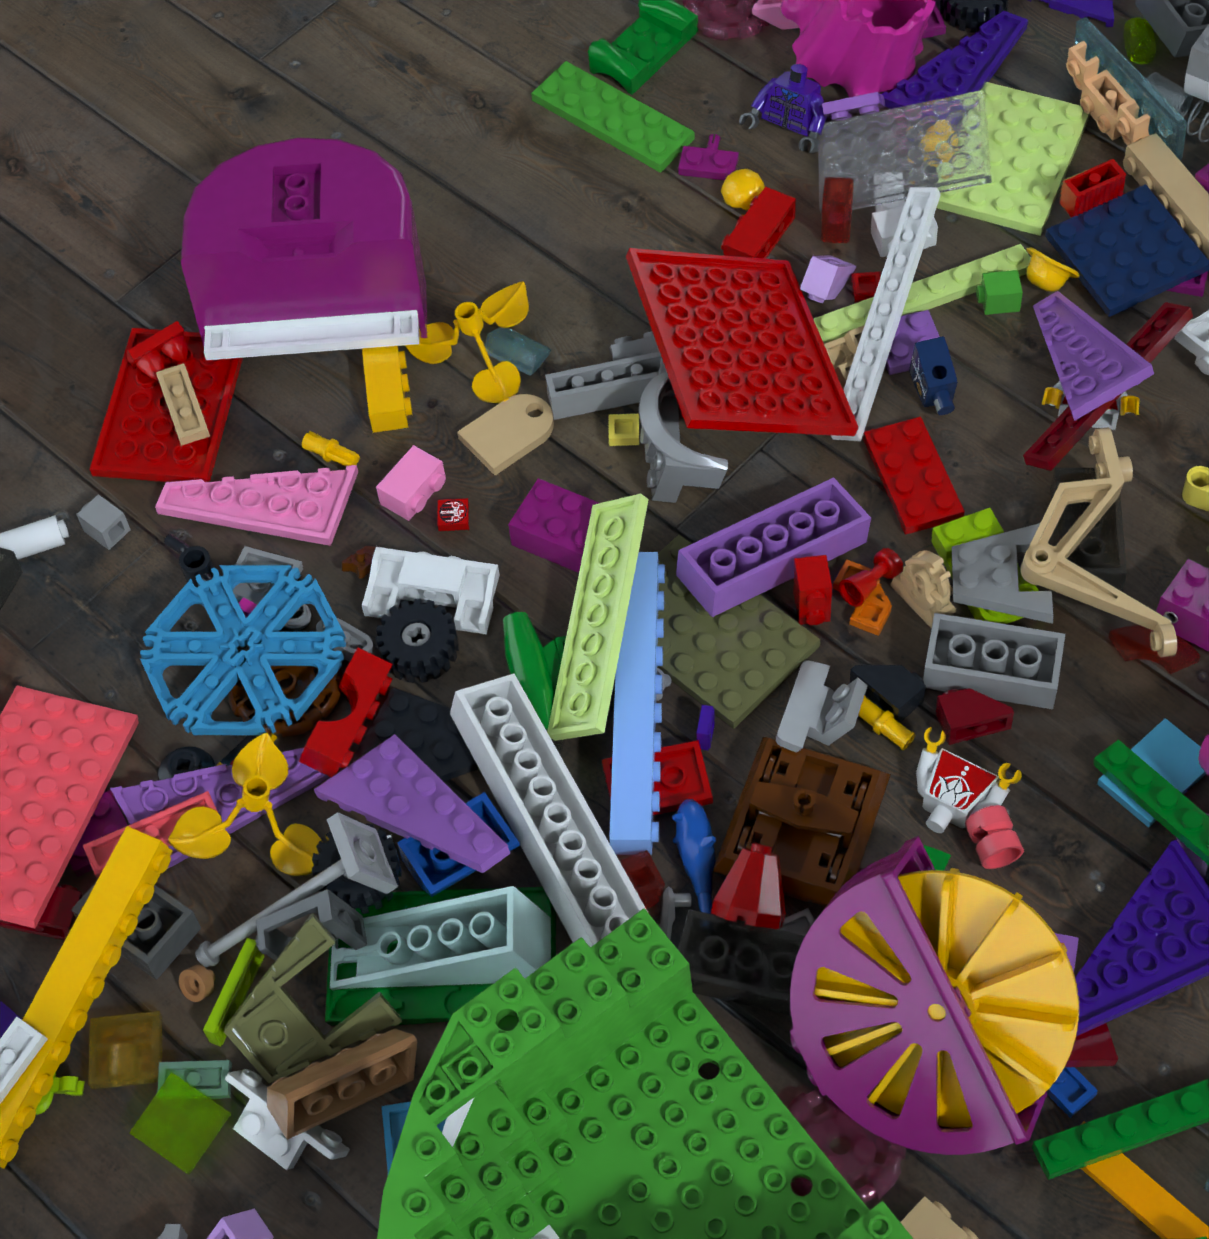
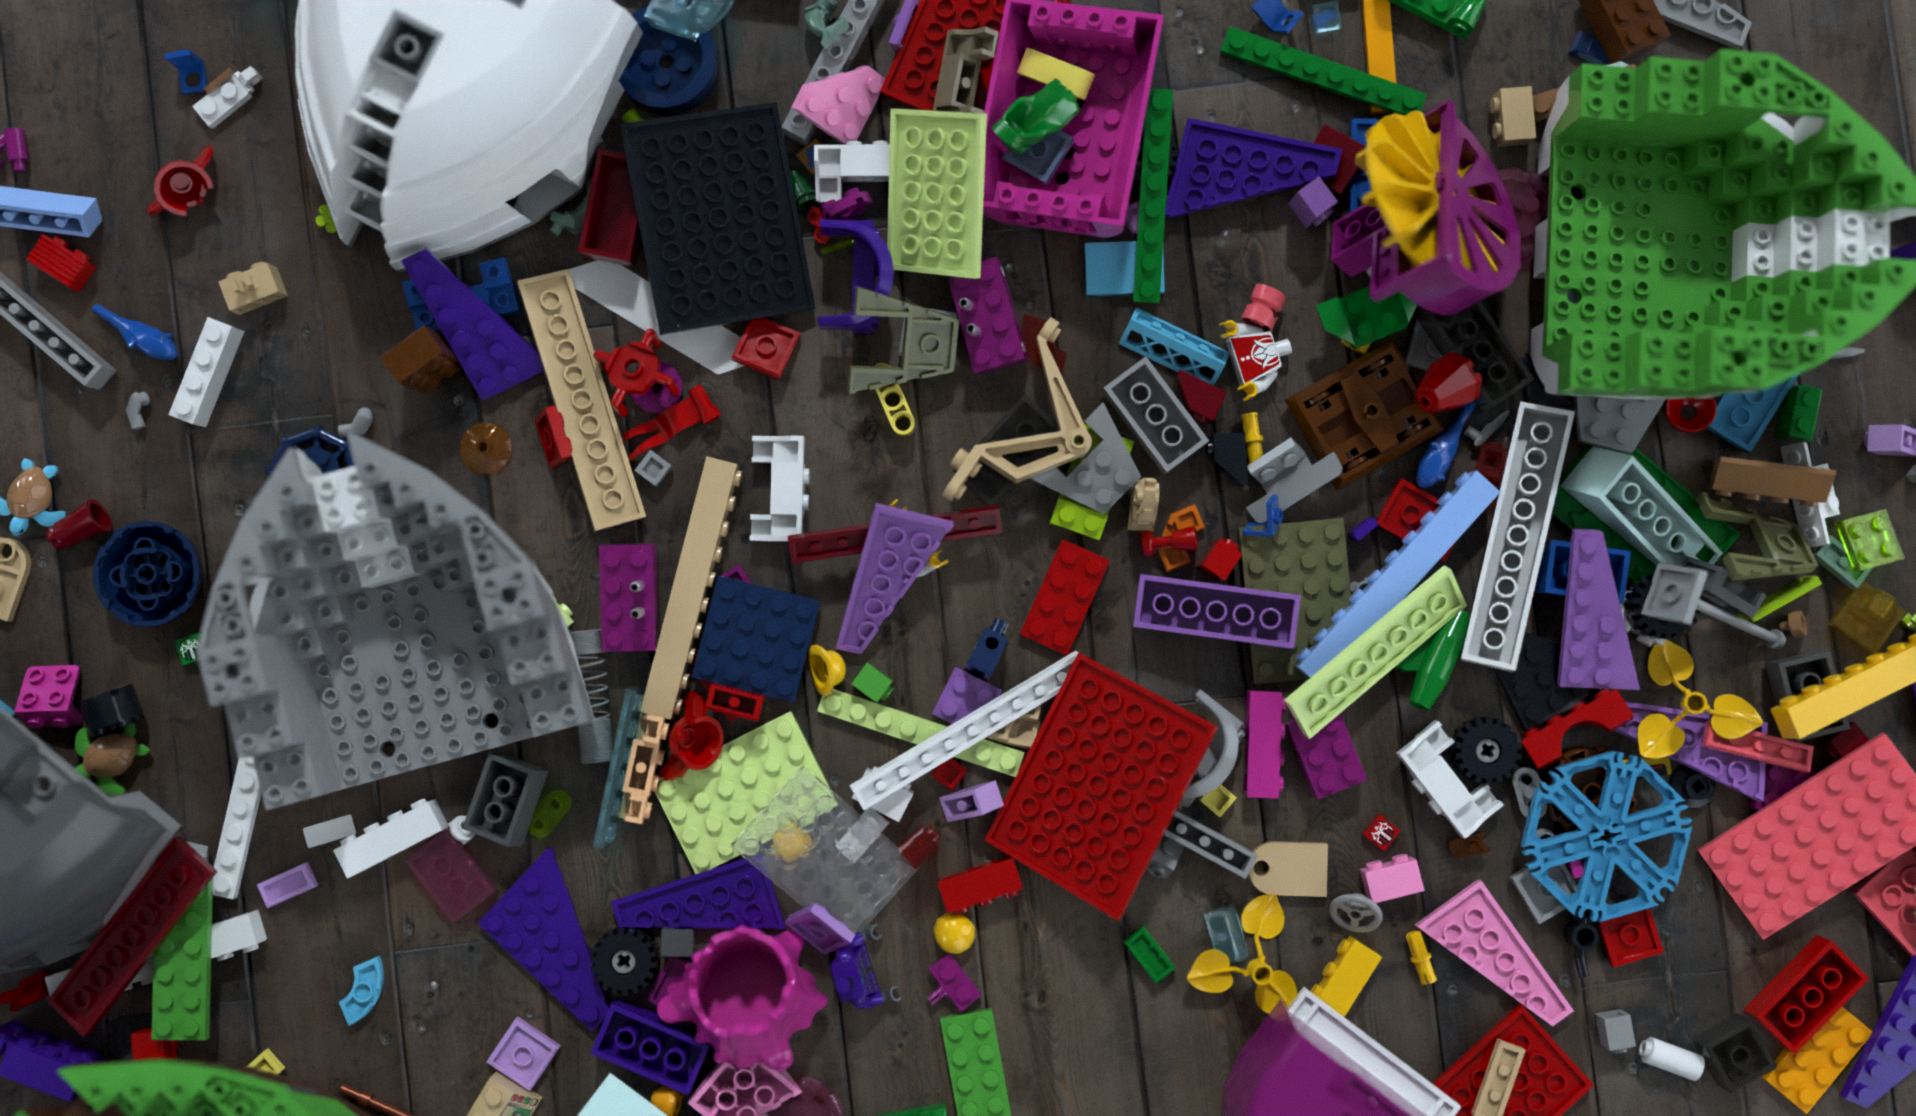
camera: 140 degrees left, 30 degrees up
(144, 598) = (1630, 937): none -> red plate
(358, 1185) = (1799, 414): none -> green brick
(423, 435) = (1357, 907): none -> light grey piece
(569, 287) = (1149, 954): none -> green plate
(612, 478) = (1263, 744): none -> dark pink brick
(803, 659) = (1274, 518): none -> blue bracket
(948, 29) = (677, 942): none -> dark grey panel
(1040, 740) = (1174, 339): none -> medium azure fence
(1090, 143) = (693, 740): none -> red helmet

